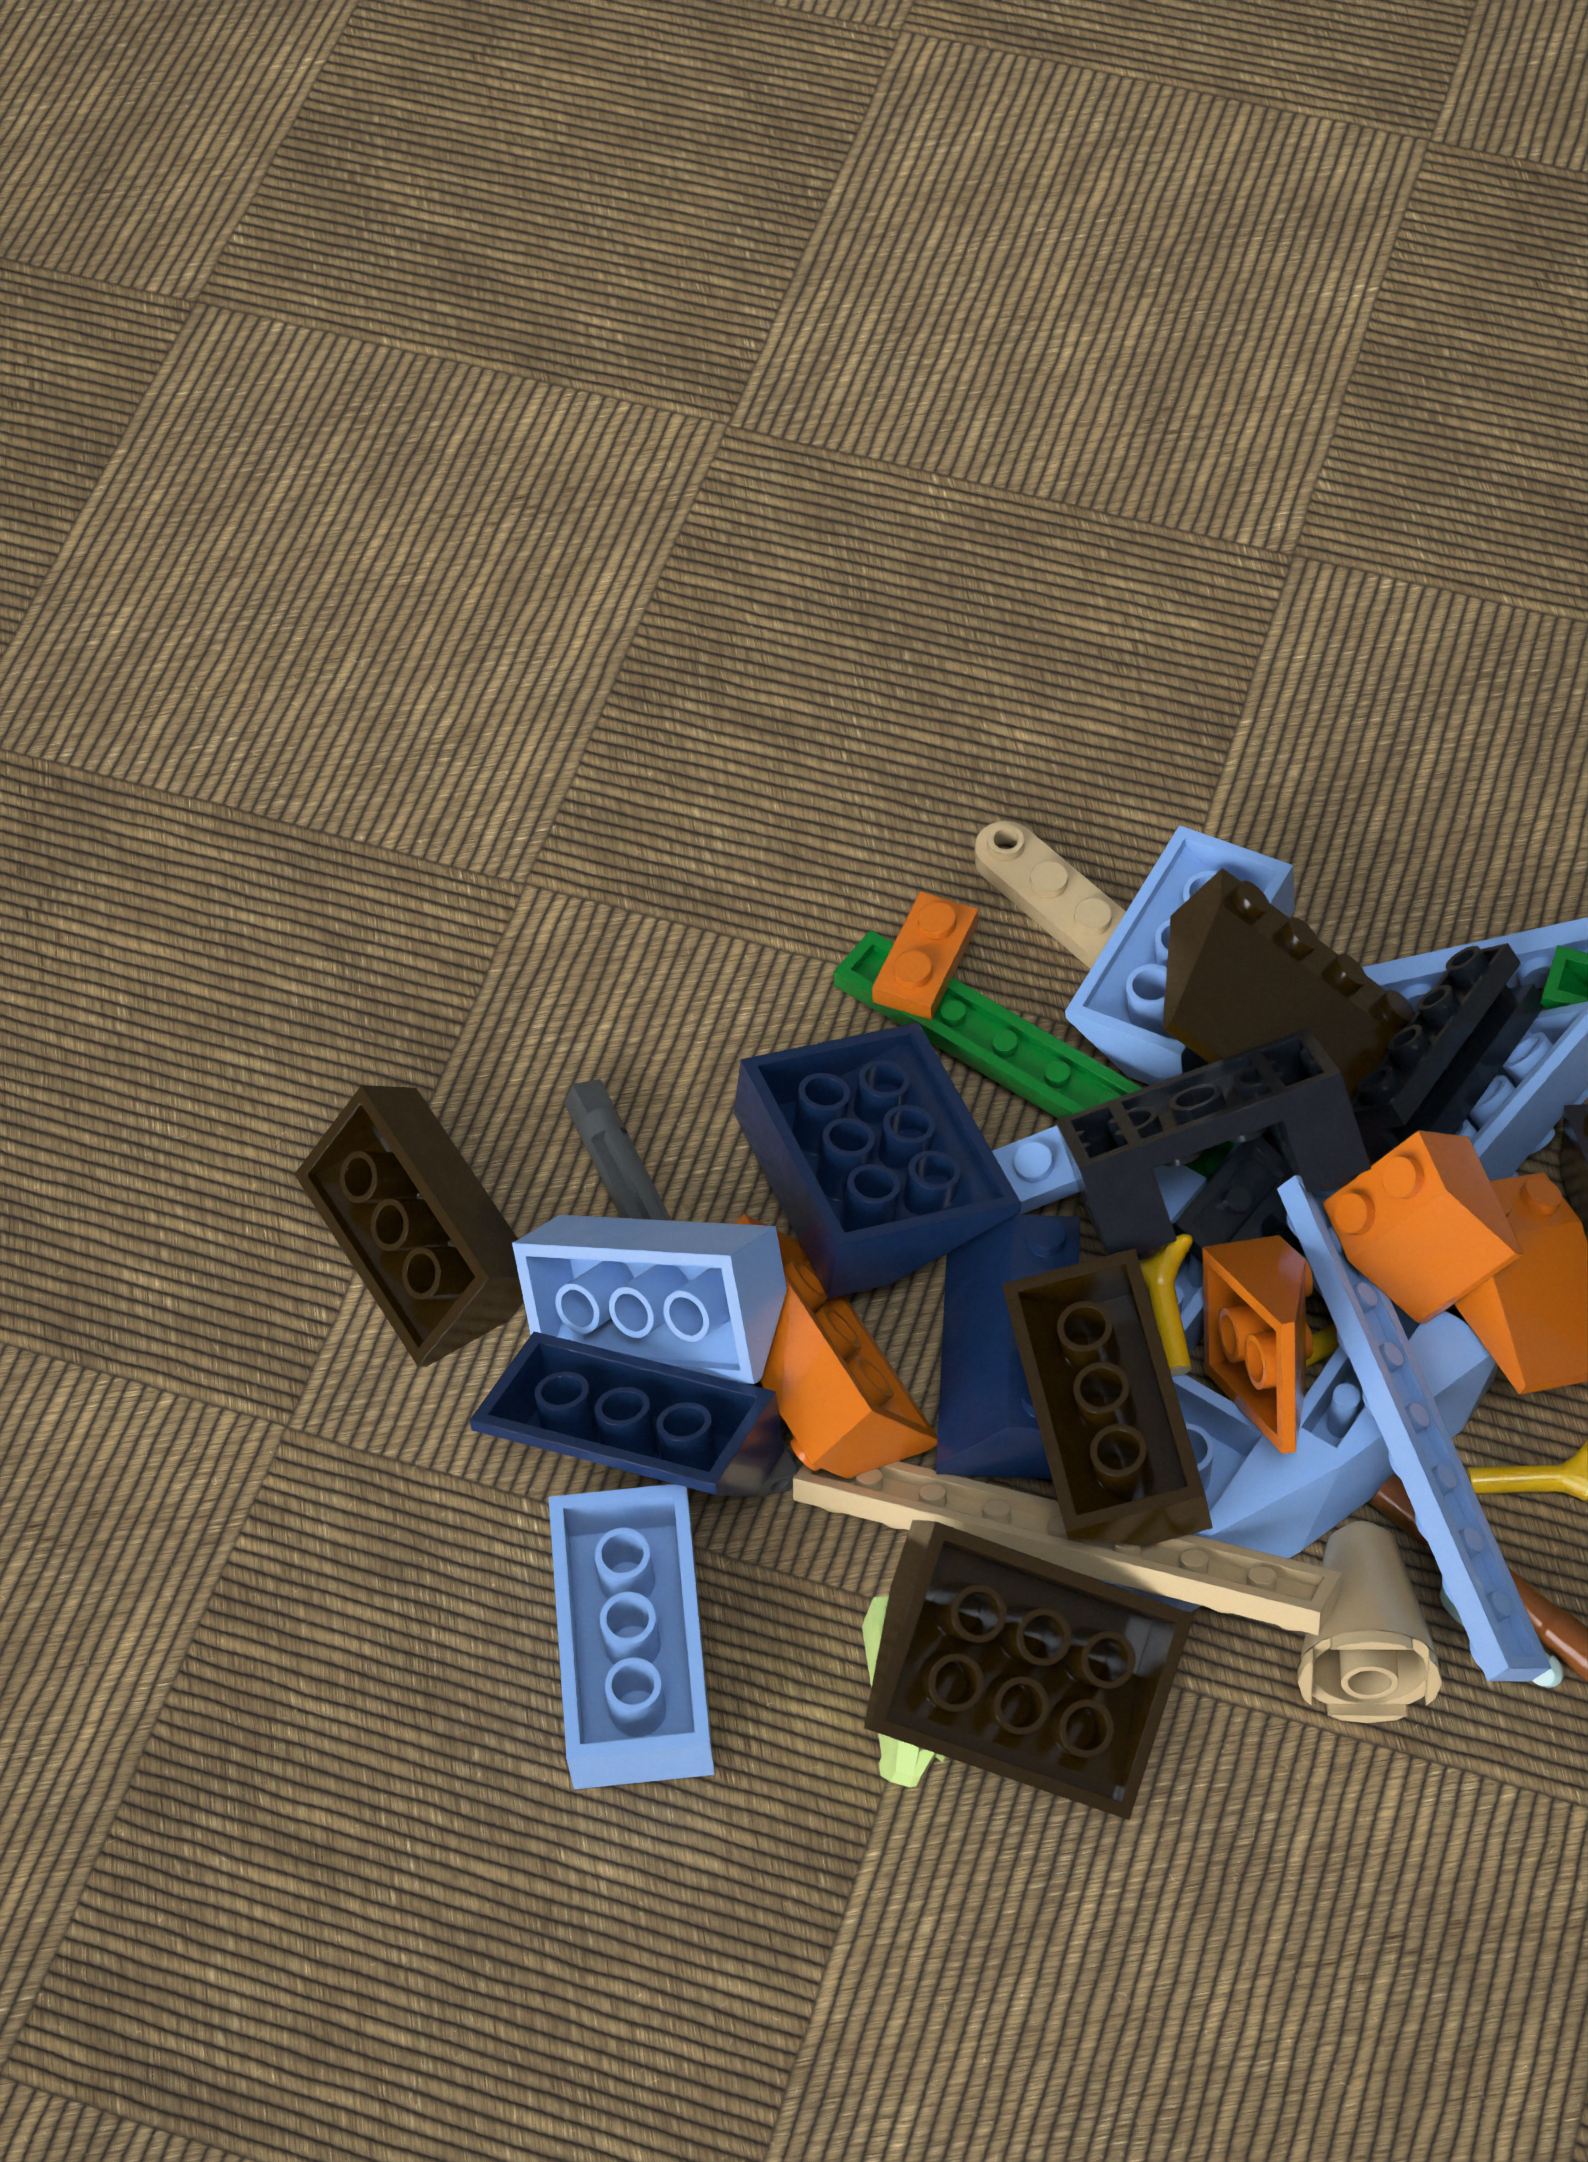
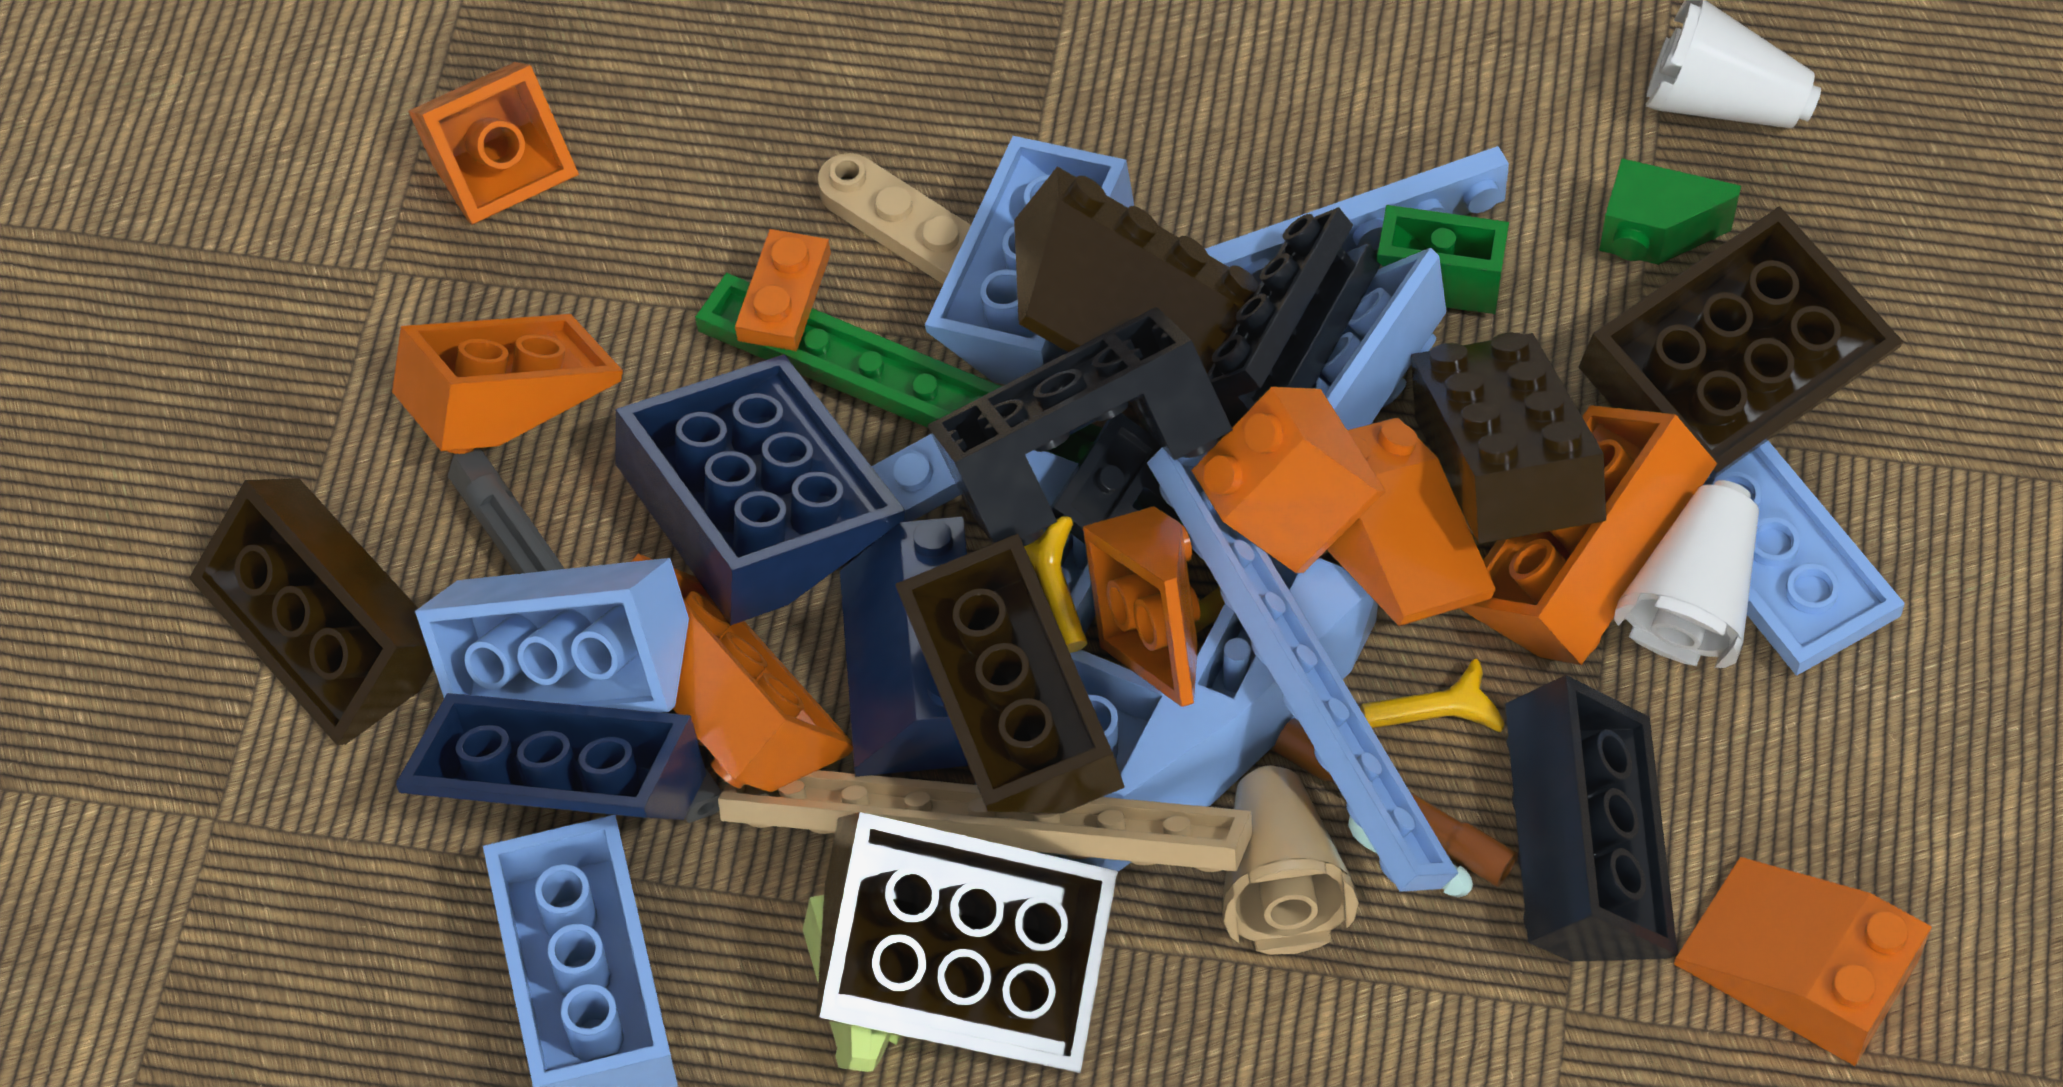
camera: 10 degrees left, 0 degrees up
(627, 1008) = (496, 376): none -> orange slope
(655, 766) = (494, 141): none -> orange slope

